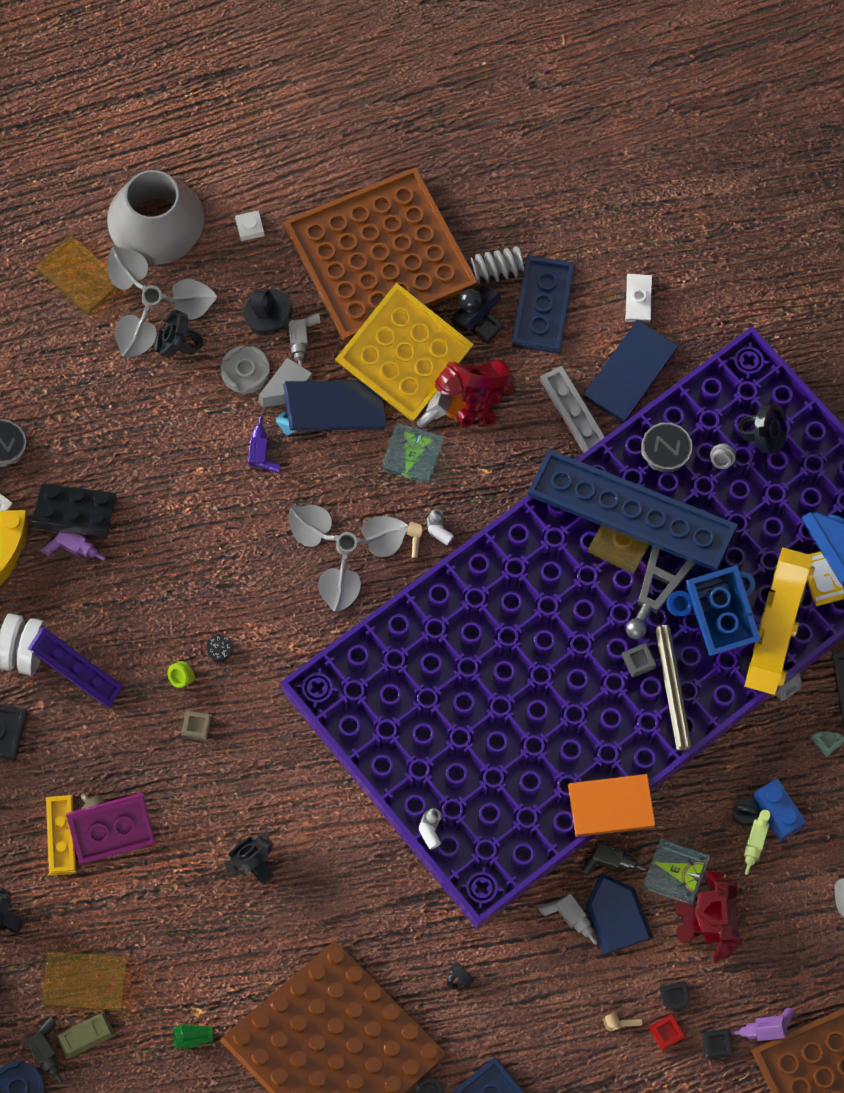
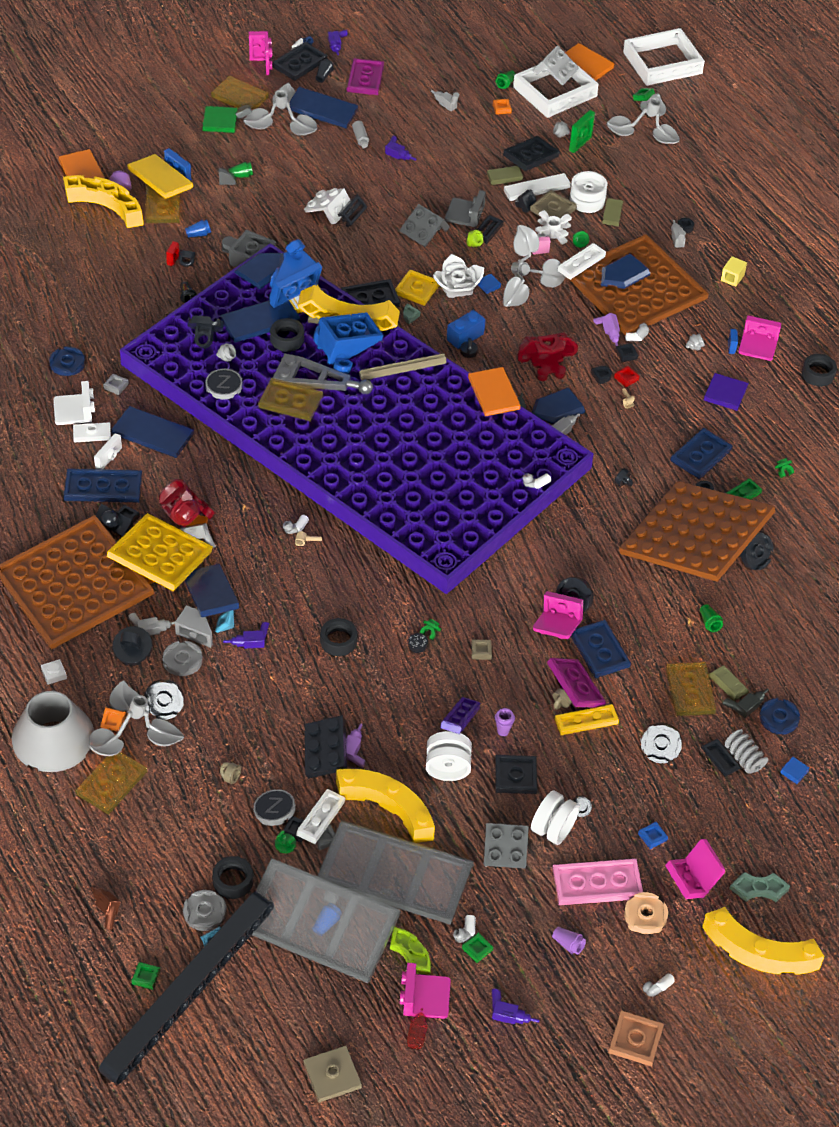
camera: 100 degrees left, 20 degrees down
(58, 401) = (232, 772): none -> dark tan tile
(62, 718) = (504, 720): none -> medium lavender cone
(164, 280) = (112, 719): none -> orange tile
(170, 877) = (600, 649): none -> dark blue tile
(180, 674) = (445, 660): lime tile -> none
(217, 827) = (560, 615): none -> dark pink bracket
(238, 667) = (432, 626): none -> green plate
(241, 533) = (338, 649): none -> black tyre
(337, 586) = (308, 557): light grey plant -> none
(412, 453) = (237, 548): clear light blue tile -> none
(497, 264) = (75, 506): light grey piece -> none
(572, 408) = (191, 457): light grey plate -> none
(594, 311) = (108, 452): none -> white plate
(632, 510) = (279, 391): dark blue plate -> none
(639, 660) = (386, 386): dark grey tile -> none
(676, 871) = (523, 375): clear light blue tile -> none
(682, 278) = (74, 408): none -> white bracket
(724, 333) = (116, 384): none -> light grey tile
(748, 1068) = (639, 335): none -> arm
(756, 839) = (487, 341): yellowish green piece -> none
(765, 527) = (287, 325): none -> black tyre
(775, 279) = (67, 361): none -> dark blue tile
(784, 501) = (256, 319): none -> dark blue tile

